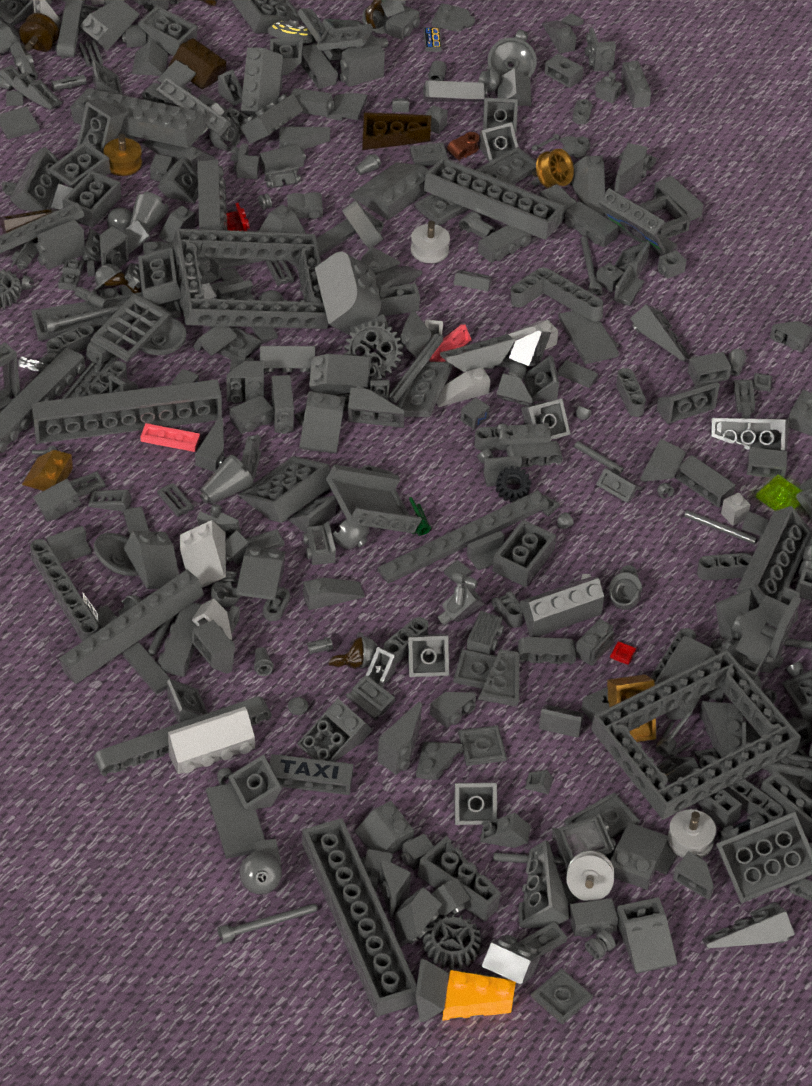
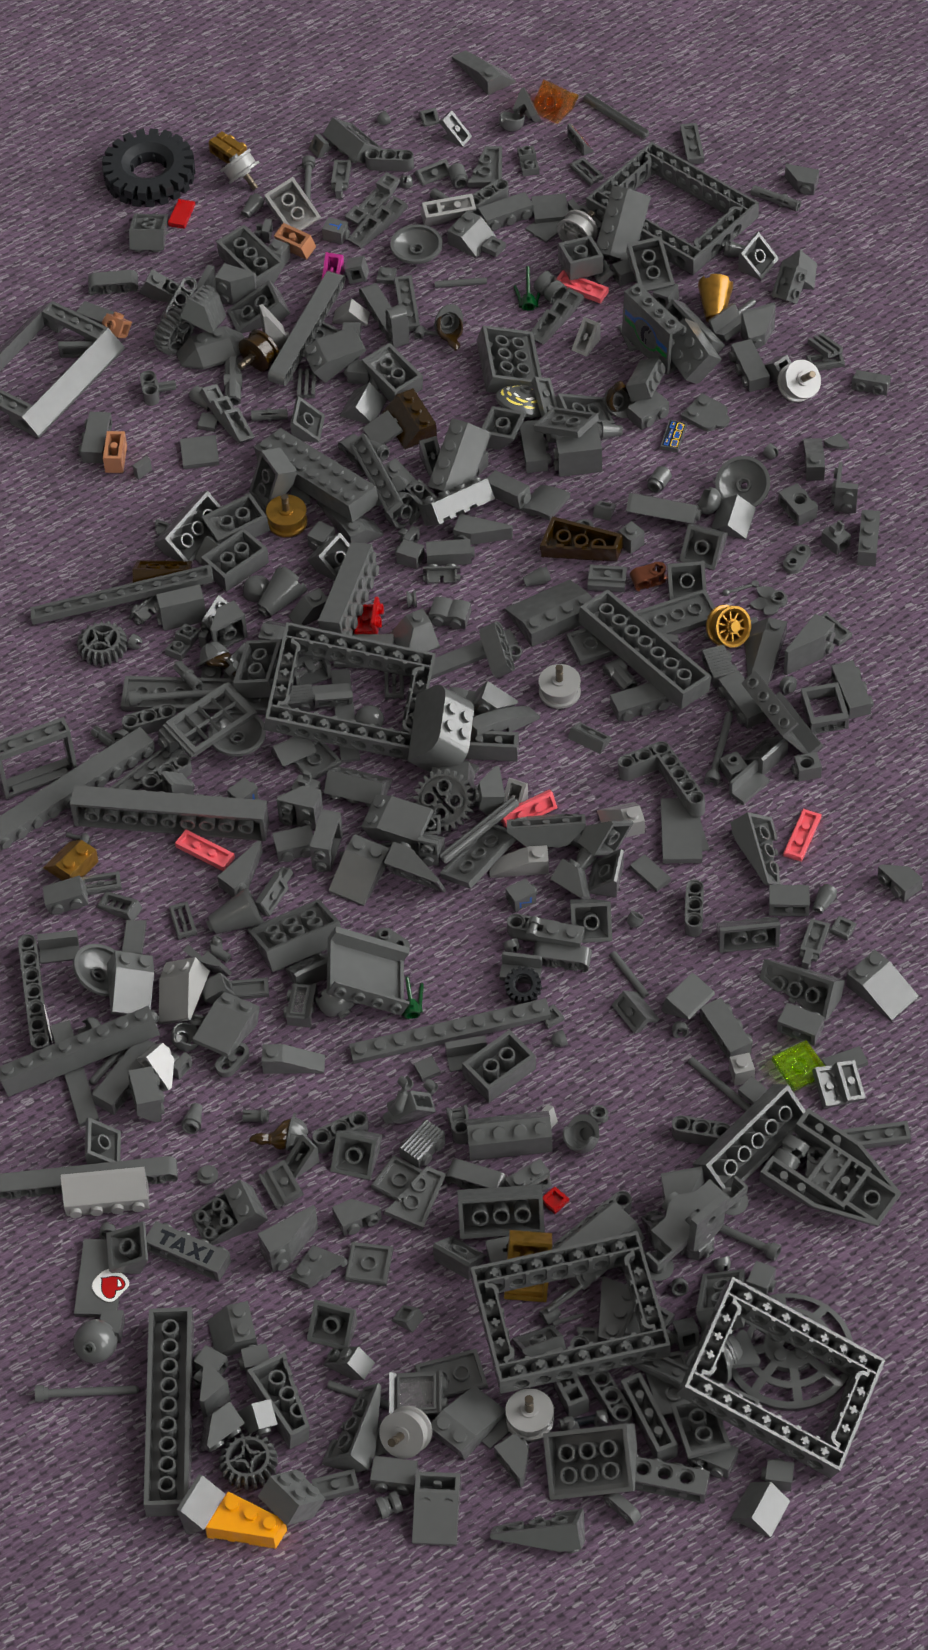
camera: 25 degrees right, 5 degrees up
(137, 234) = (257, 613): dark grey slope -> none
(249, 822) = (109, 1285): none -> sticker
(562, 996) = (330, 1546): dark grey tile -> none
(585, 669) = (499, 1210): none -> dark grey brick
(692, 318) = (802, 835): none -> coral tile

